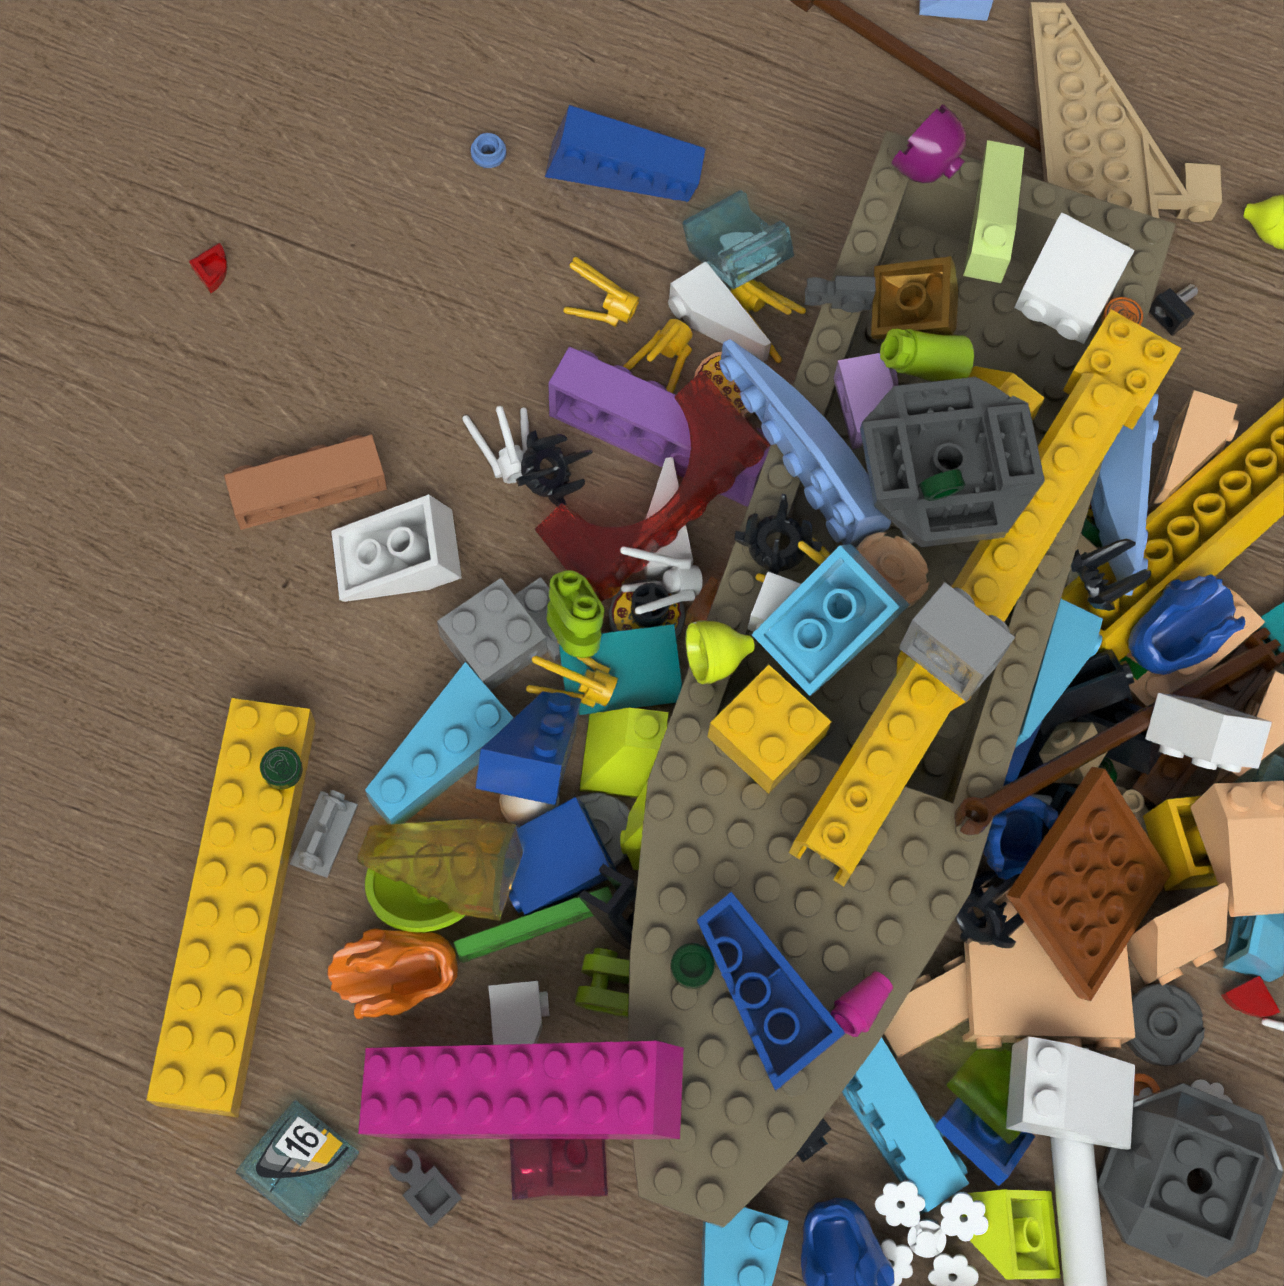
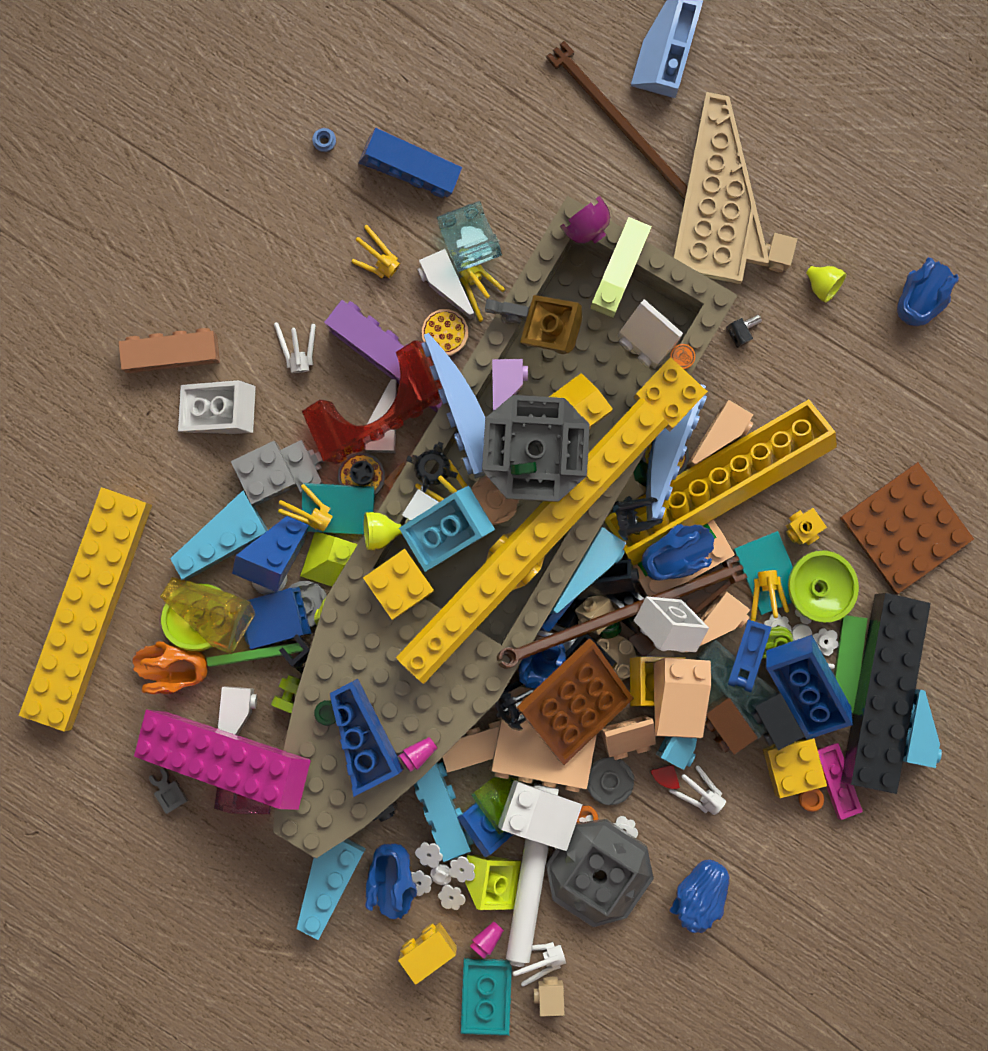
camera: 15 degrees right, 15 degrees up
(211, 267) = (134, 192): red tile -> none
(281, 768) = (122, 538): dark green tile -> none
(297, 1162) = (99, 762): slope -> none
(324, 833) = (145, 575): light grey hinge -> none
(534, 476) = (328, 366): black piece -> none
(575, 614) = (312, 474): lime brick -> none
(669, 342) = (413, 296): yellow plant -> none
(682, 580) = (383, 461): white plant -> none
(928, 354) = (550, 367): lime plant -> none
(956, 641) = (509, 565): light grey piece -> none

